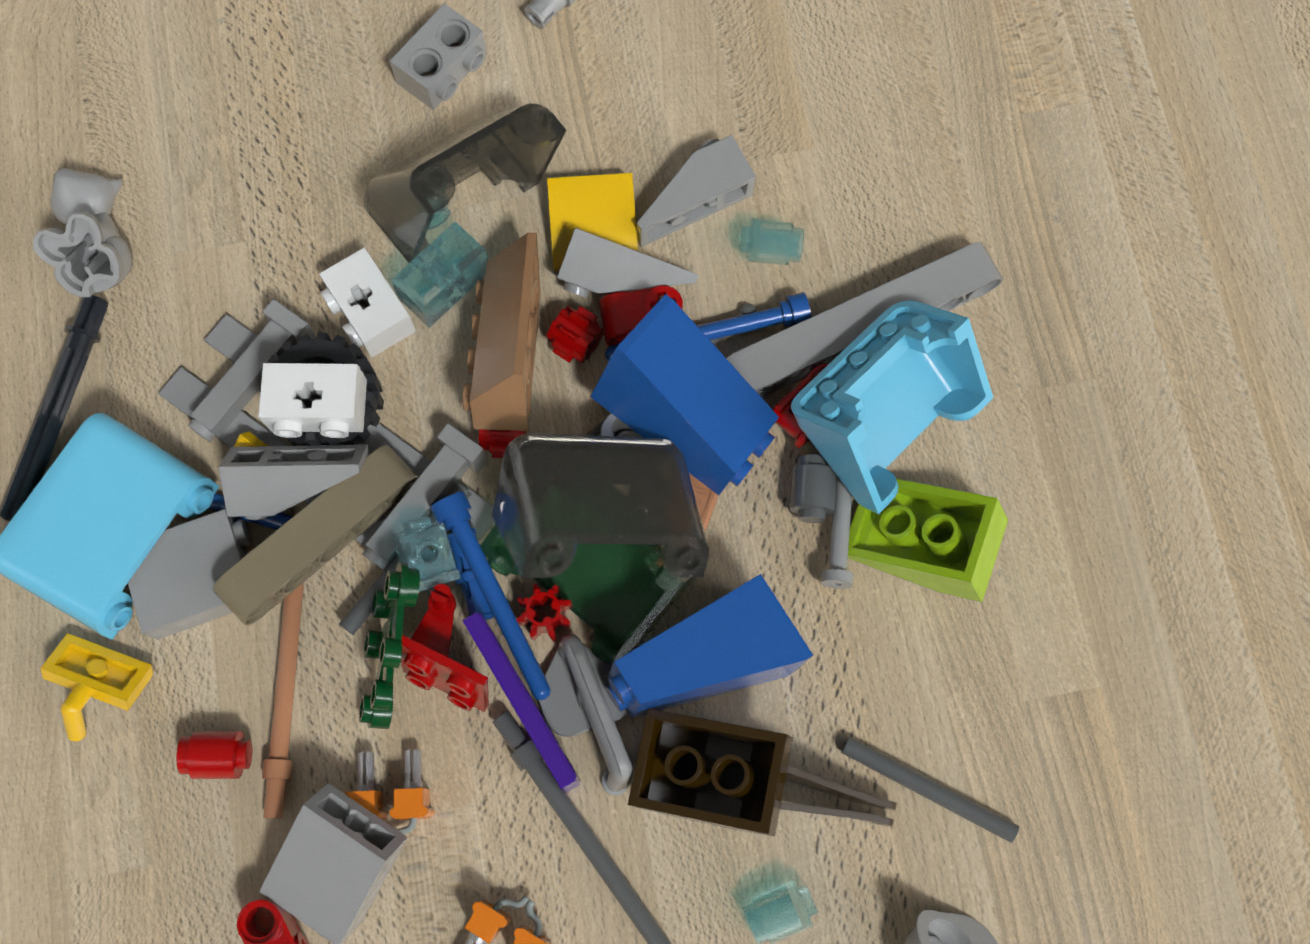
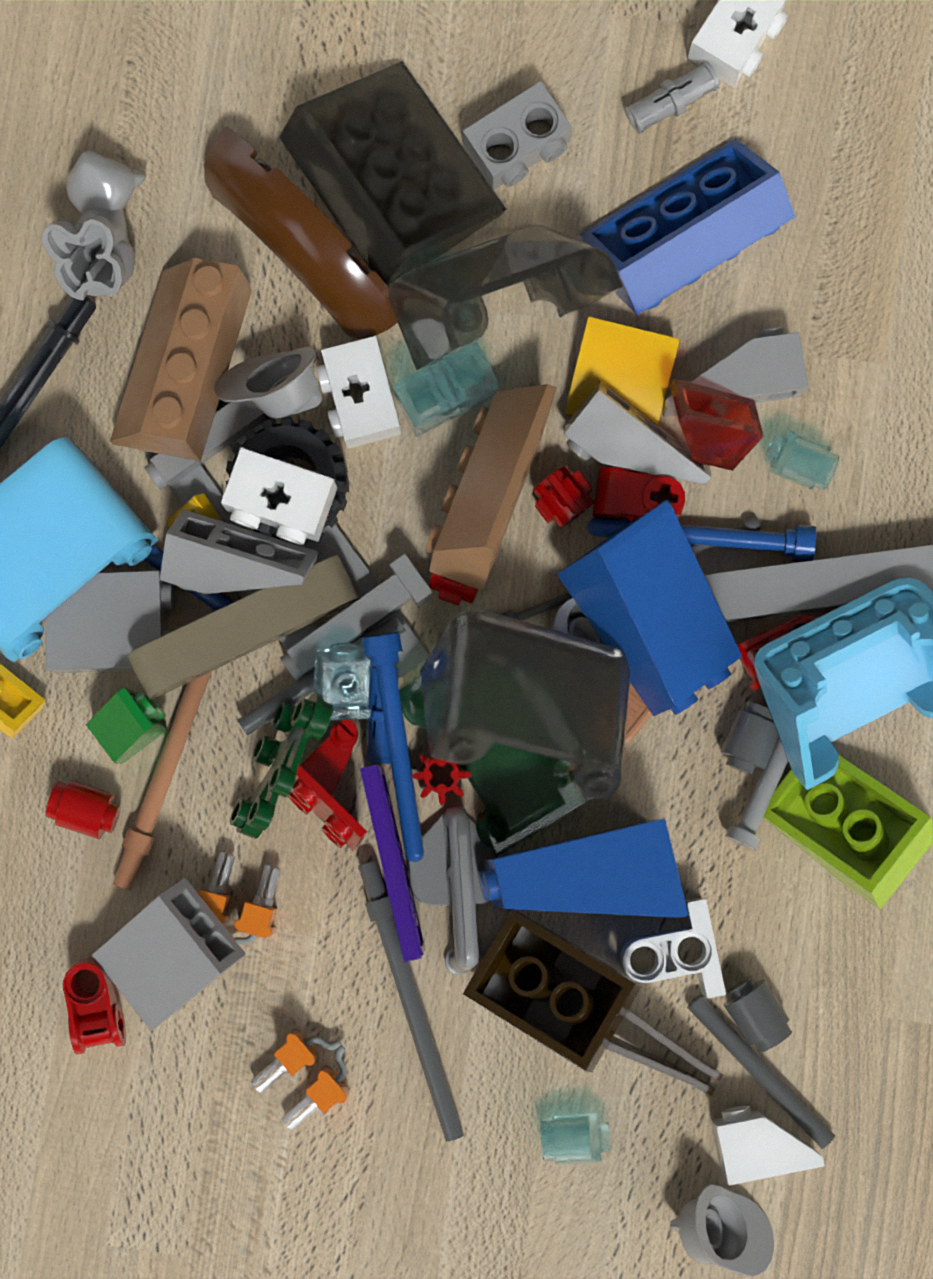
camera: 25 degrees right, 10 degrees up
(198, 320) = (182, 358): none -> medium nougat slope
(233, 659) = (127, 724): none -> green slope
(274, 185) = (298, 236): none -> reddish brown brick
(286, 311) = (274, 382): none -> light grey piece
(334, 114) = (390, 170): none -> clear smoke slope
(616, 81) = (692, 224): none -> blue slope
(687, 229) = (716, 424): none -> clear red slope
(805, 708) = (667, 961): none -> white tile
(907, 735) = (758, 1014): none -> dark grey brick
(953, 860) = (759, 1148): none -> white slope

